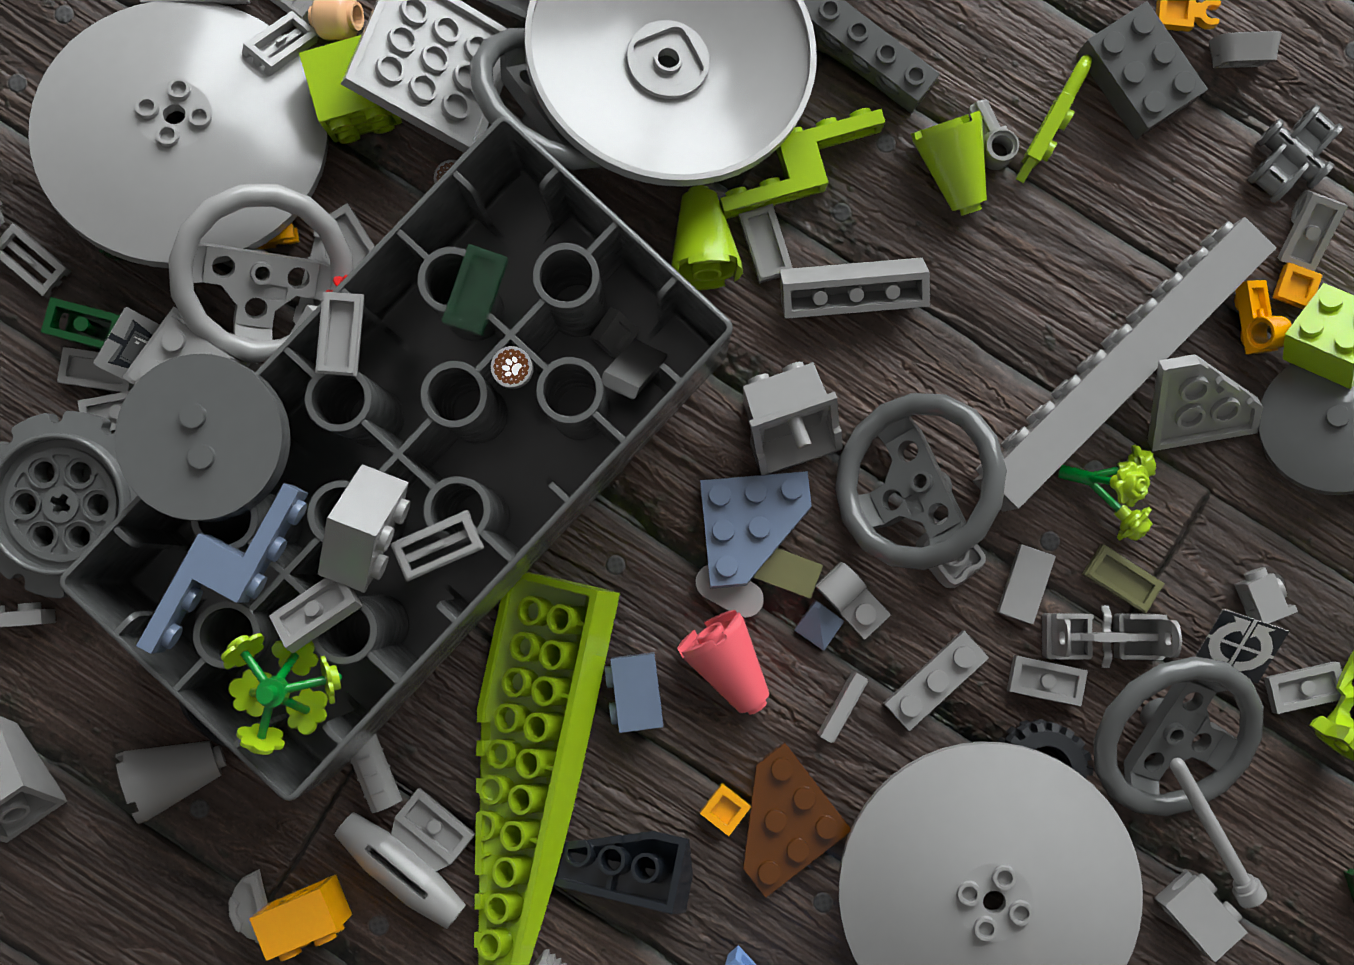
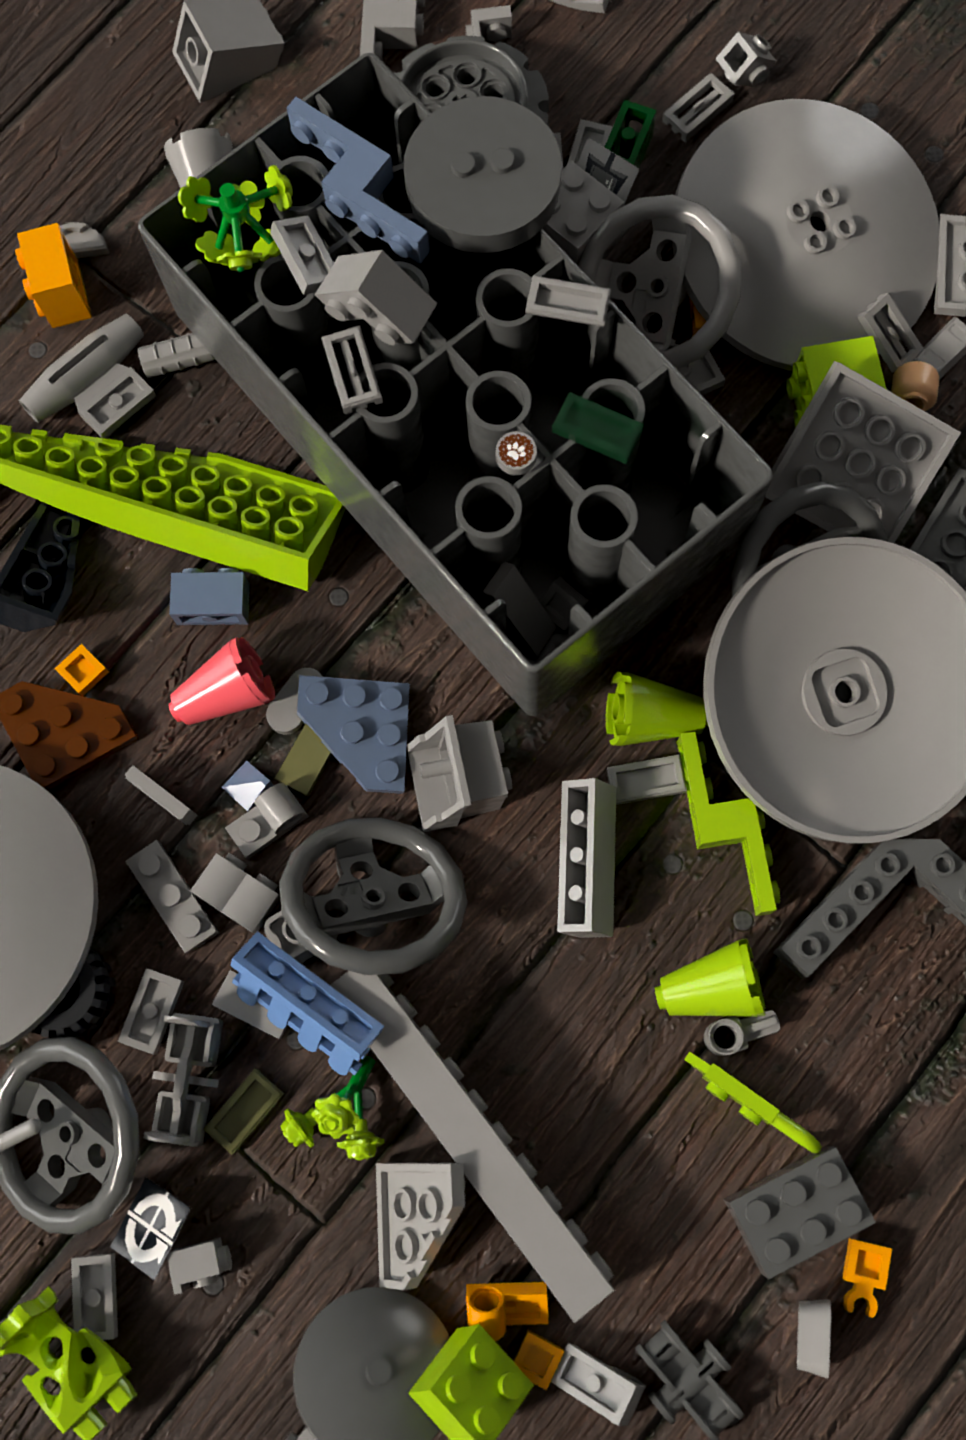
camera: 105 degrees right, 10 degrees down
(927, 616) = (236, 892): none -> light grey brick
(1033, 525) = (304, 1003): none -> medium blue fence

